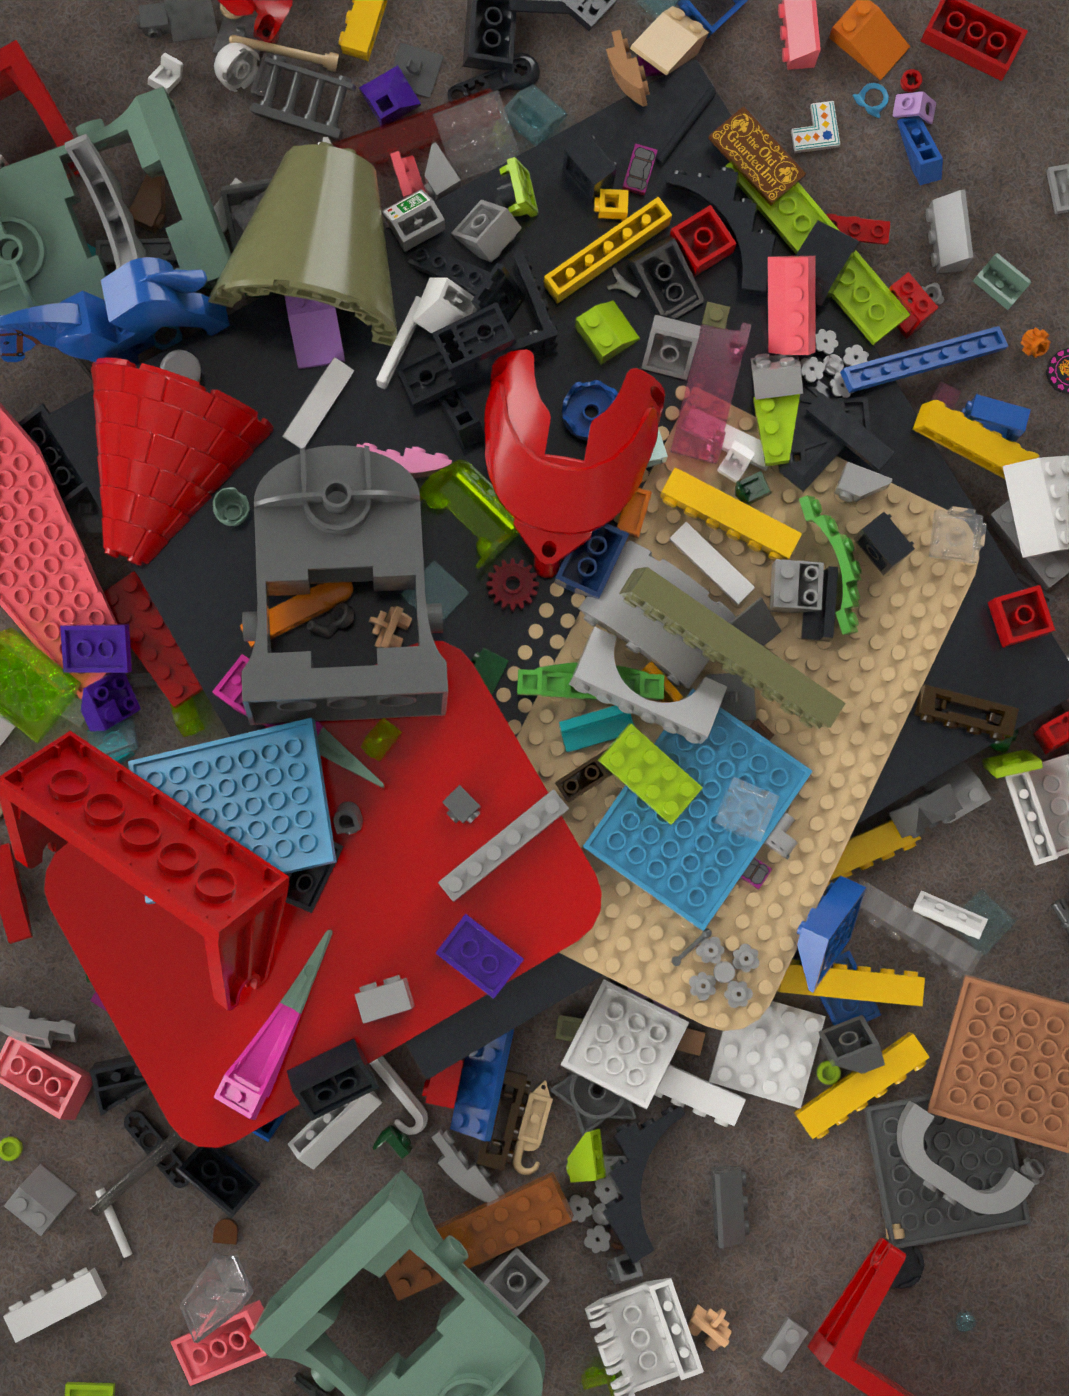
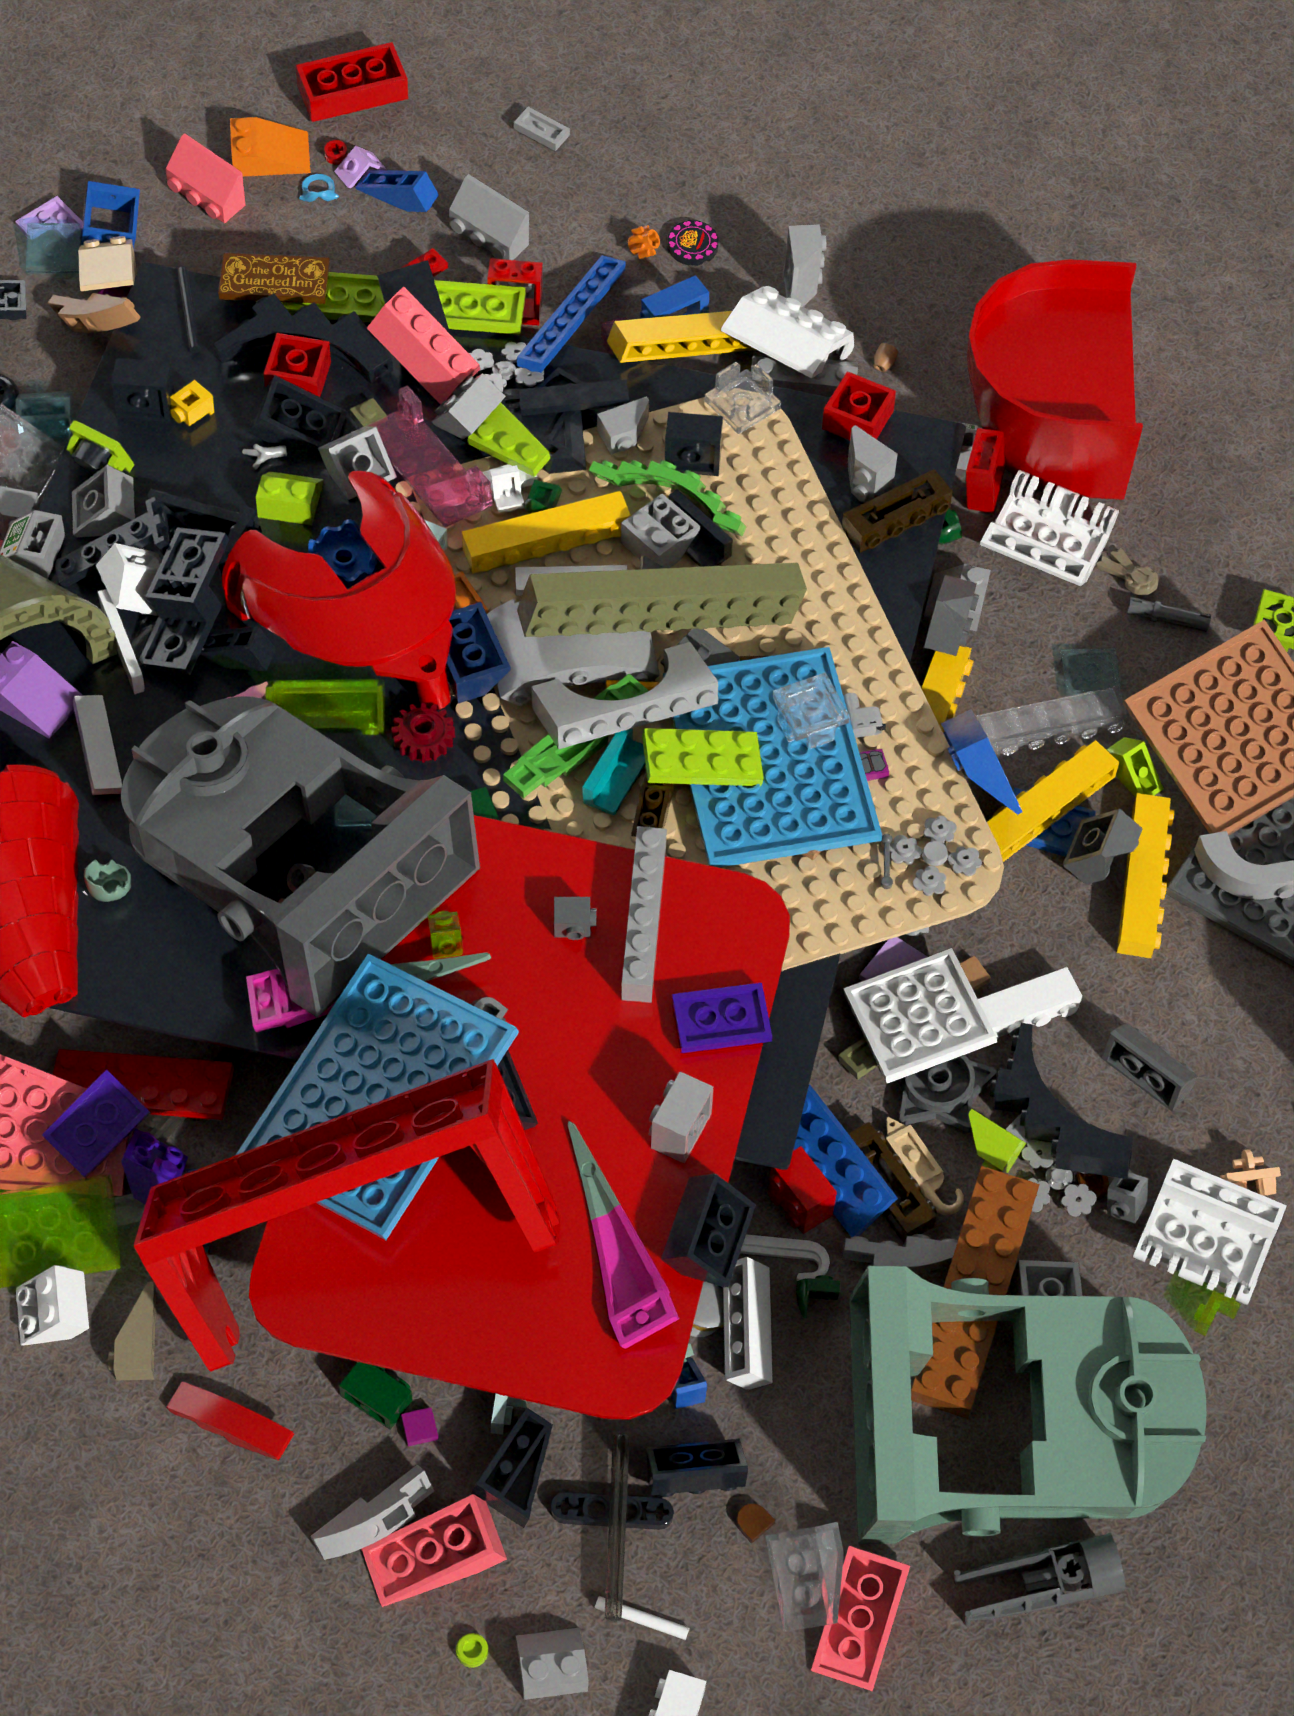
camera: 50 degrees left, 25 degrees down
(187, 718) = (237, 1121): clear neon green bracket -> none
(306, 607) = (270, 883): orange piece -> none
(394, 618) = (348, 844): light nougat hips -> none
(607, 250) = (225, 434): yellow brick -> none
(639, 169) = (185, 365): tile -> none
(770, 1055) = (1041, 922): white plate -> none
(822, 134) = (302, 237): white tile -> none
(828, 1074) = (1107, 894): lime tile -> none
(934, 1012) = (1135, 767): none -> lime slope
(950, 914) = (1062, 683): white plate -> none
(978, 667) = (869, 466): none -> light grey slope
(1002, 281) = (568, 222): sand green bracket -> none
(1012, 763) = (975, 533): lime tile -> none

